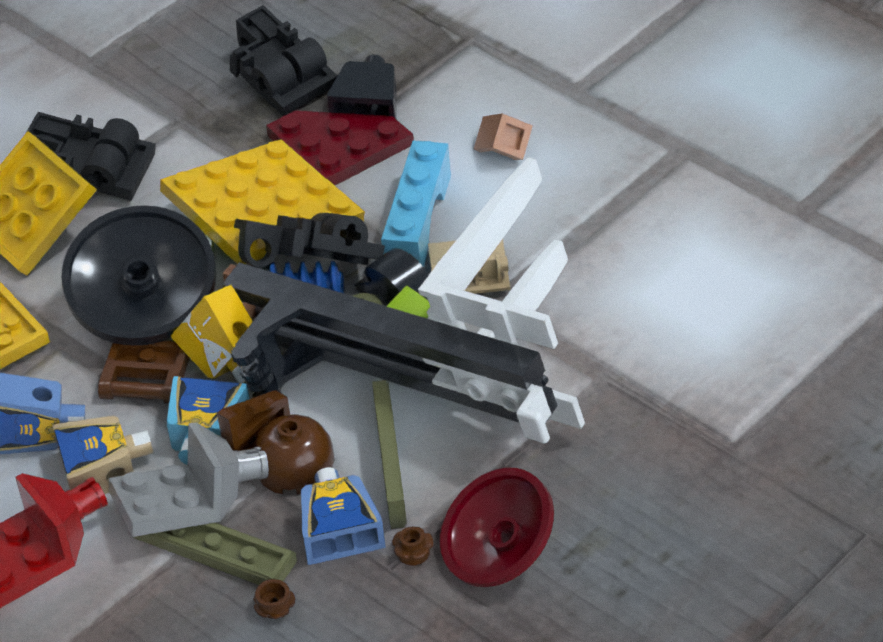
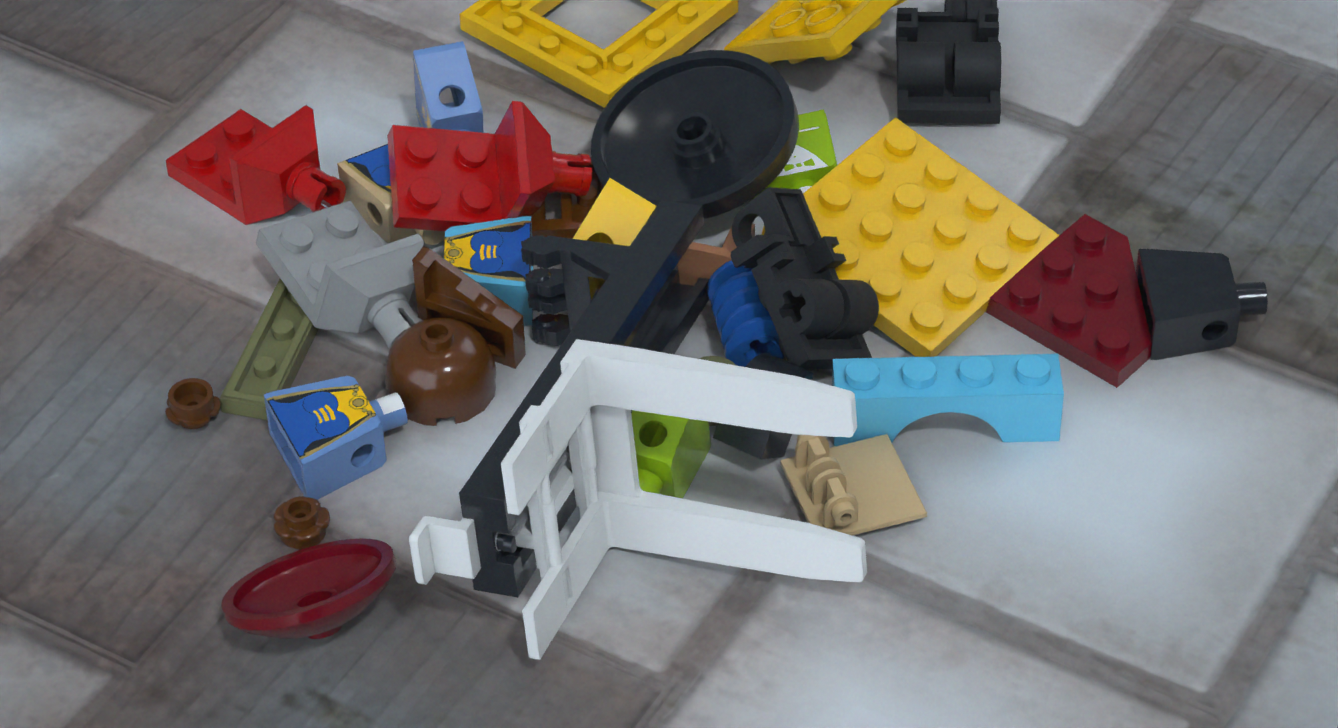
camera: 75 degrees right, 0 degrees up
(128, 390) = (478, 177): none -> red plate
(278, 62) = (1211, 192): black plate -> none
(389, 454) = (413, 469): olive tile -> none
(503, 136) = (1141, 472): nougat panel -> none

